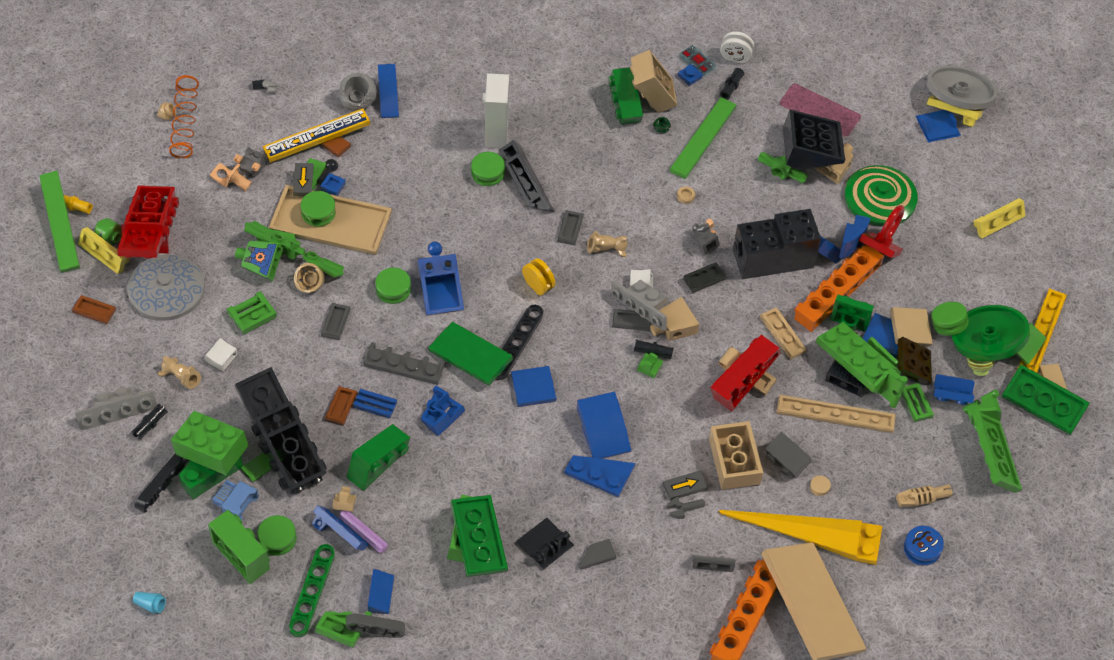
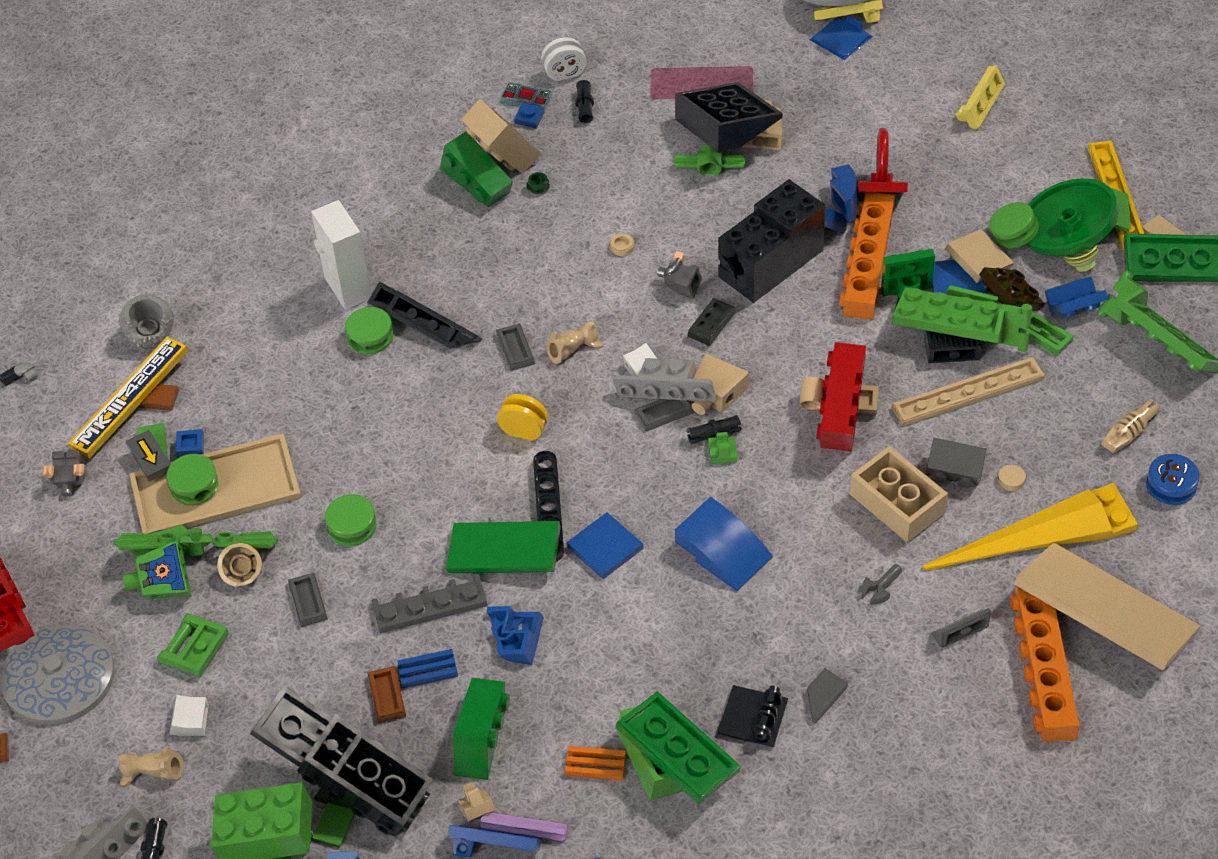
camera: 25 degrees left, 5 degrees down
(232, 176) = (51, 500): light nougat bracket -> none
(331, 166) = (171, 424): black bar -> none
(388, 91) = (183, 302): blue slope -> none
(418, 507) = (595, 753): none -> orange tile
(441, 284) = (408, 486): blue slope -> none
(600, 473) = (757, 600): blue wing -> none
(685, 485) = (863, 560): dark grey tile -> none
(703, 138) = (595, 175): bright green tile -> none
(783, 333) = (834, 331): tan tile -> none
(877, 191) = (835, 137): green dish -> none

